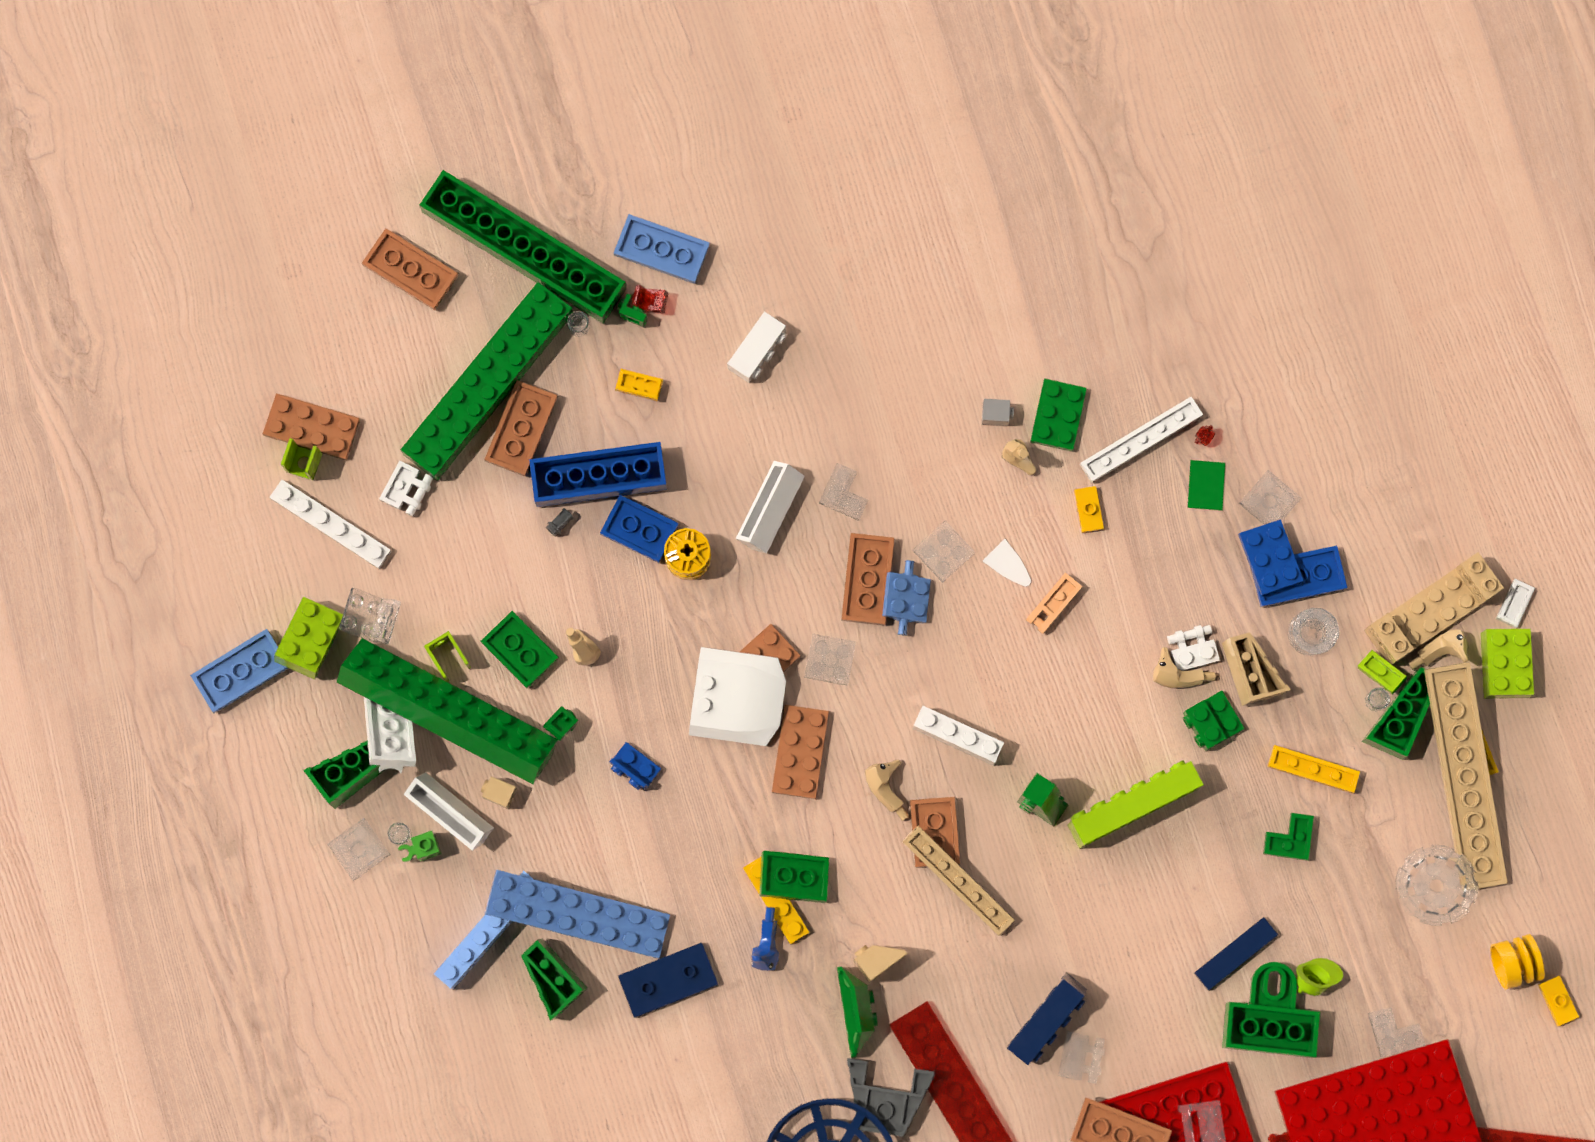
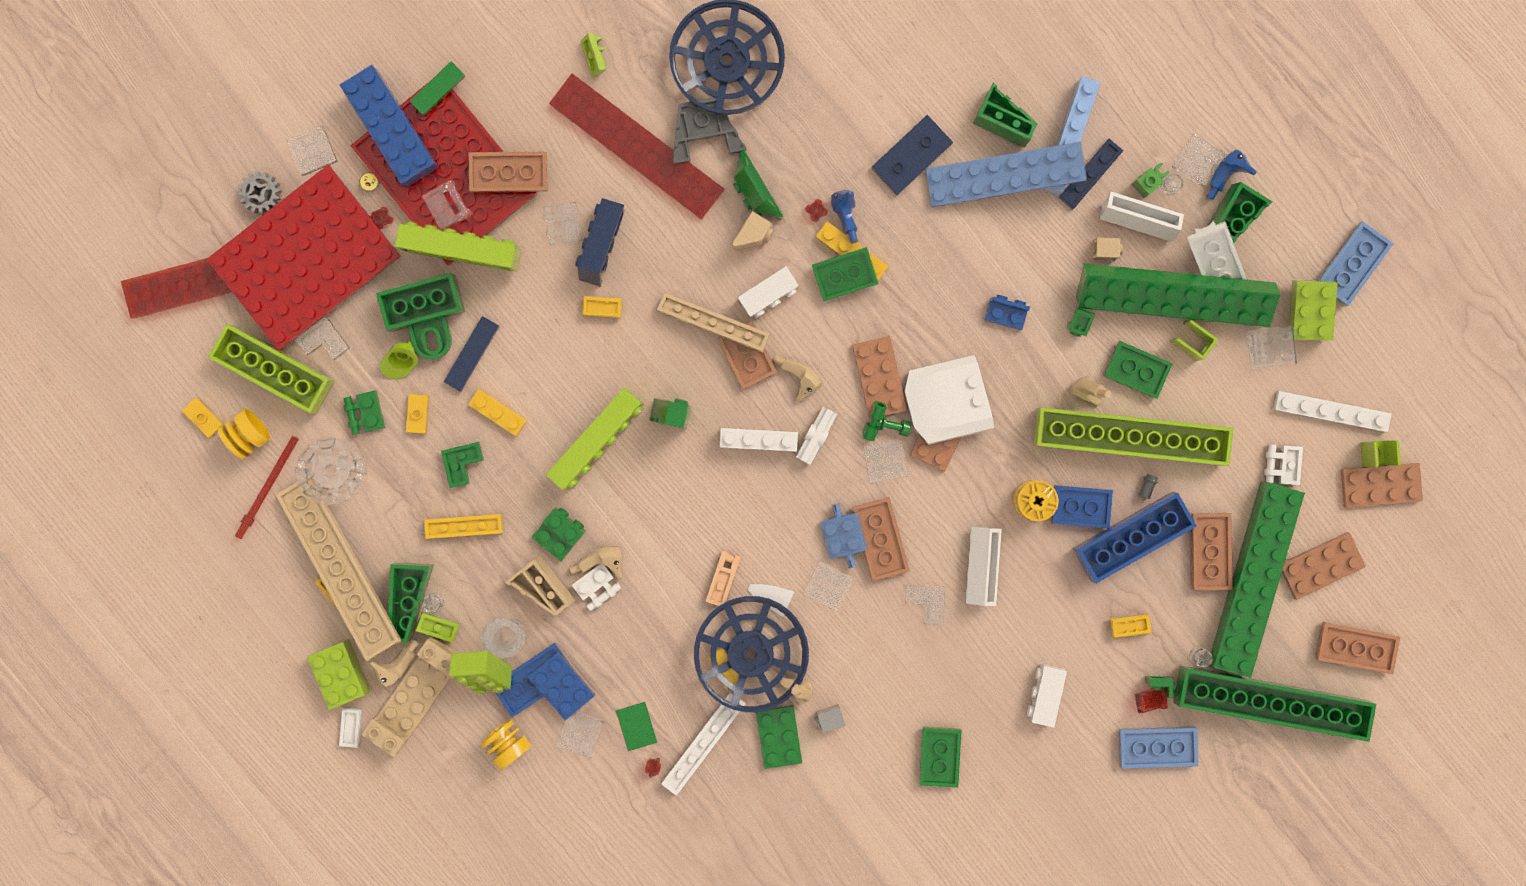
camera: 160 degrees right, 10 degrees up
(327, 830) = (1231, 164): none -> blue animal
(410, 368) = (1322, 565): none -> nougat plate
(478, 882) = (1094, 170): none -> dark blue tile
(556, 580) = (1133, 436): none -> lime brick
(802, 965) = (817, 204): none -> clear red plate
(820, 703) = (879, 421): none -> green bar
(885, 889) = (768, 293): none -> white brick
(893, 715) = (816, 435): none -> white piece
(895, 328) = (940, 757): none -> green plate
(1054, 497) = (764, 654): none -> dark blue dish
(1072, 947) = (602, 307): none -> yellow plate
(1207, 1070) = (457, 247): none -> lime brick
(1231, 878) = (497, 412): none -> yellow plate
(1319, 911) = (417, 413): none -> yellow plate
(1351, 603) = (480, 672): none -> lime brick
(1353, 518) = (505, 744): none -> yellow wheel
(1370, 935) = (370, 412): none -> green plate
(1462, 1022) = (271, 368): none -> lime brick
(1547, 869) = (248, 519): none -> clear red bar

